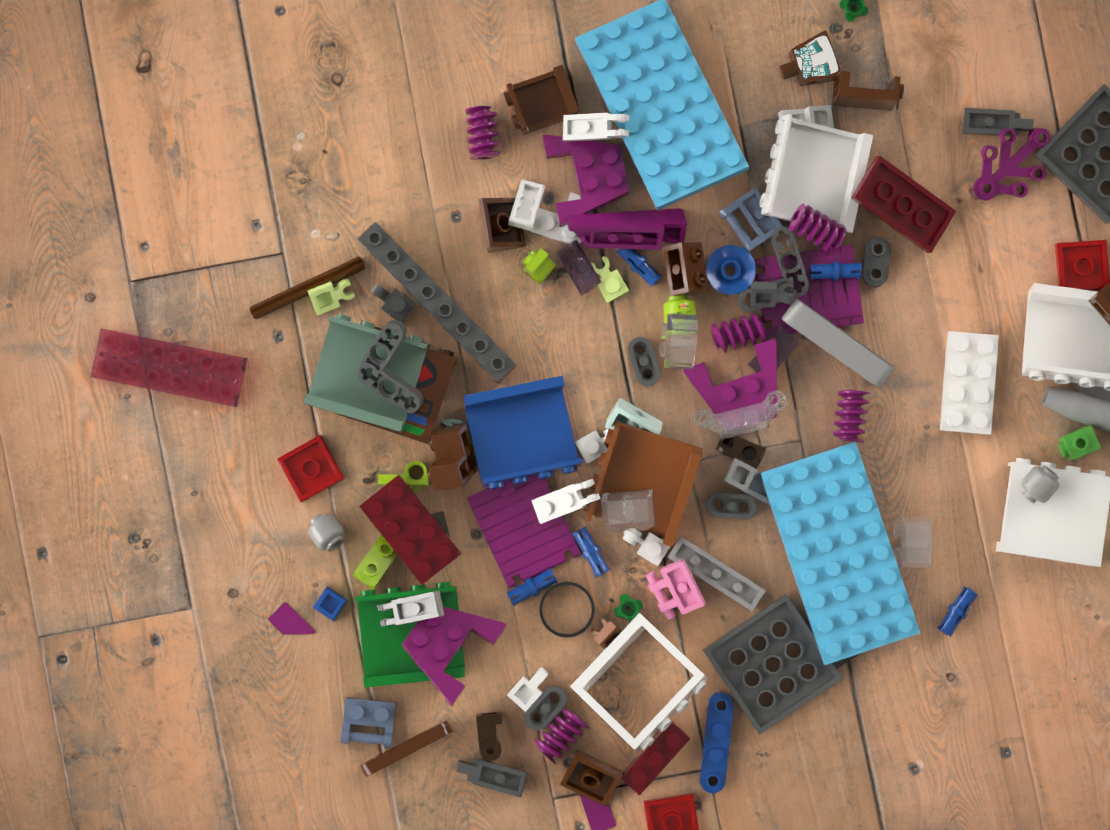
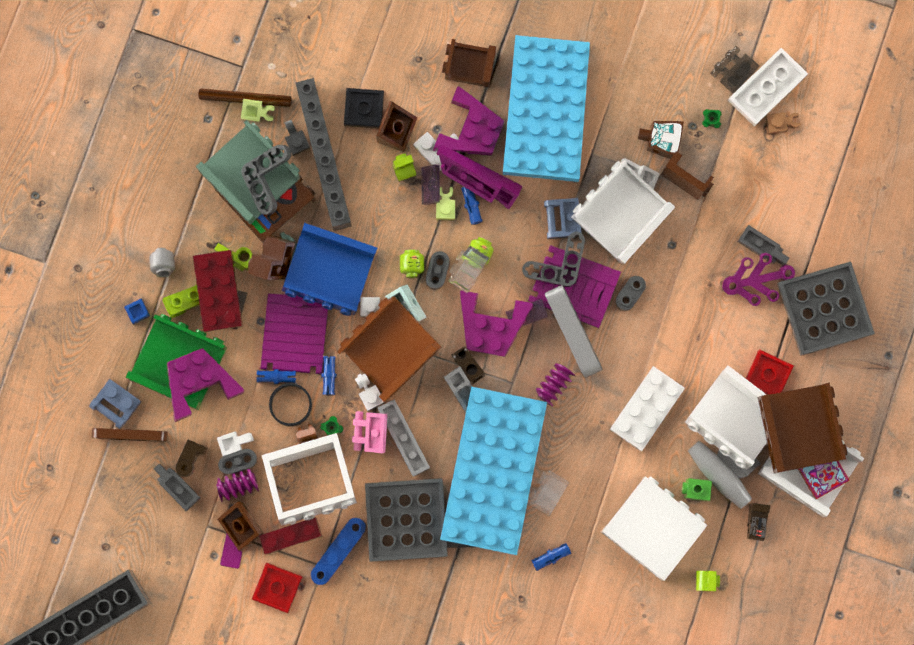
camera: 25 degrees right, 5 degrees down
(169, 367) = (124, 98): clear pink plate -> none
(289, 622) = (103, 308): magenta sticker -> none
(310, 468) = (177, 216): red tile -> none
(413, 608) = (188, 343): hinge -> none
(450, 222) = (363, 108): none -> black tile
(481, 132) = (417, 61): magenta piece -> none
(526, 205) = (419, 124): white plate -> none
(563, 501) = (329, 330): white hinge -> none
(593, 126) = (492, 97): white hinge -> none
(610, 370) = (411, 263): none -> lime head
(628, 510) = (369, 361): clear brick -> none
(685, 268) = (500, 224): reddish brown brick -> none
(731, 505) = (440, 398): dark grey plate -> none
(734, 257) = (532, 233): blue dish -> none
(738, 332) = (510, 286): magenta piece -> none
(743, 419) = (481, 344): clear plate -> none
(767, 294) = (544, 270): dark grey plate -> none
(817, 226) = (602, 245): magenta piece -> none
(835, 271) = (599, 282): blue pin -> none
(903, 204) = (669, 264): dark red plate -> none
(1040, 484) = (654, 500): light grey head -> none

